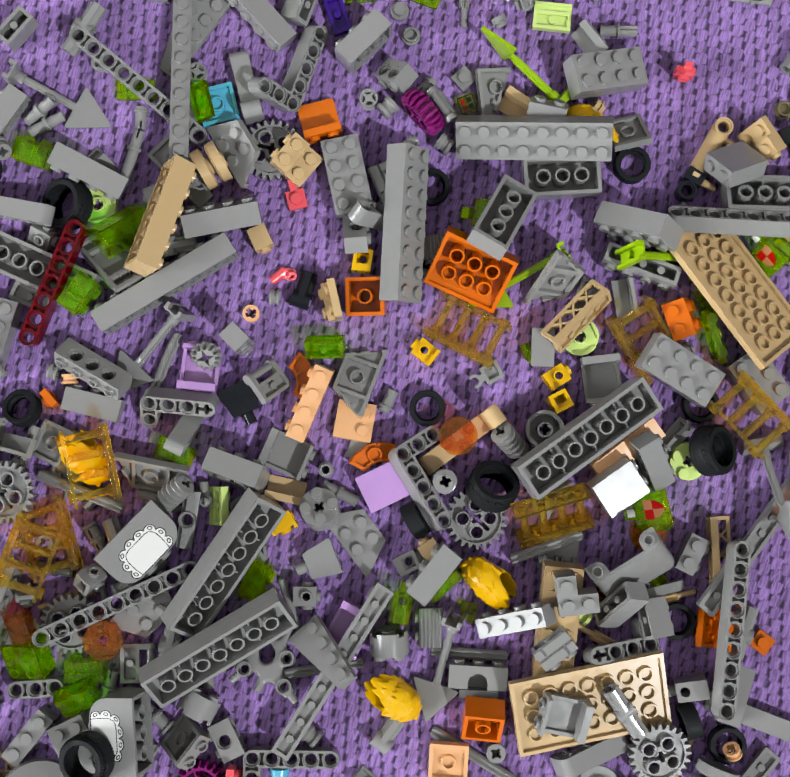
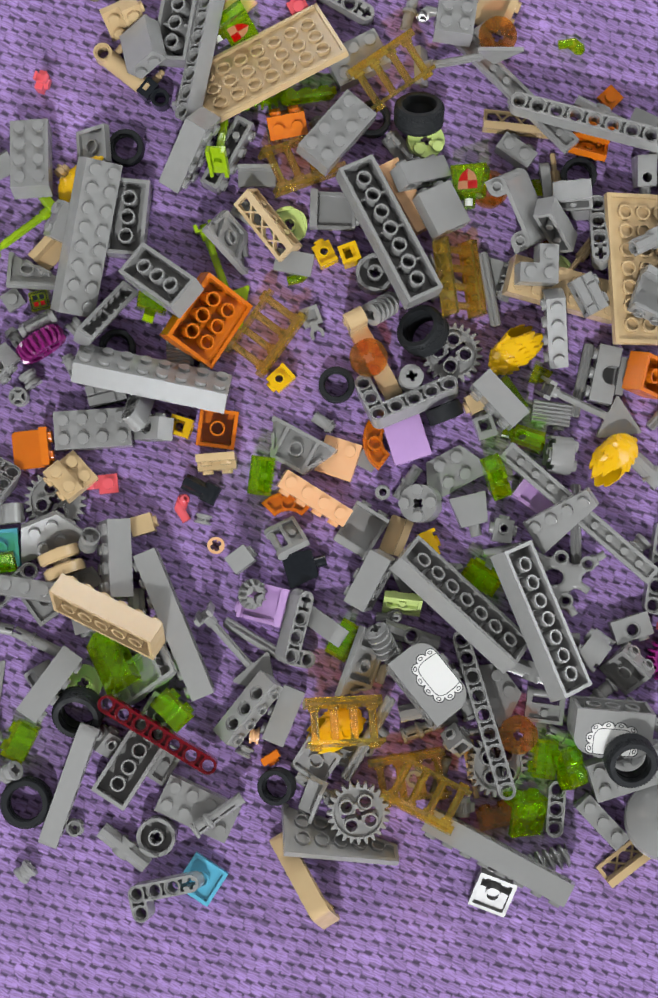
camera: 80 degrees left, 0 degrees up
(238, 184) = (89, 540): none -> light grey wheel
(357, 581) = (495, 476): none -> clear neon green brick
(461, 168) = (104, 314): none -> light grey brick

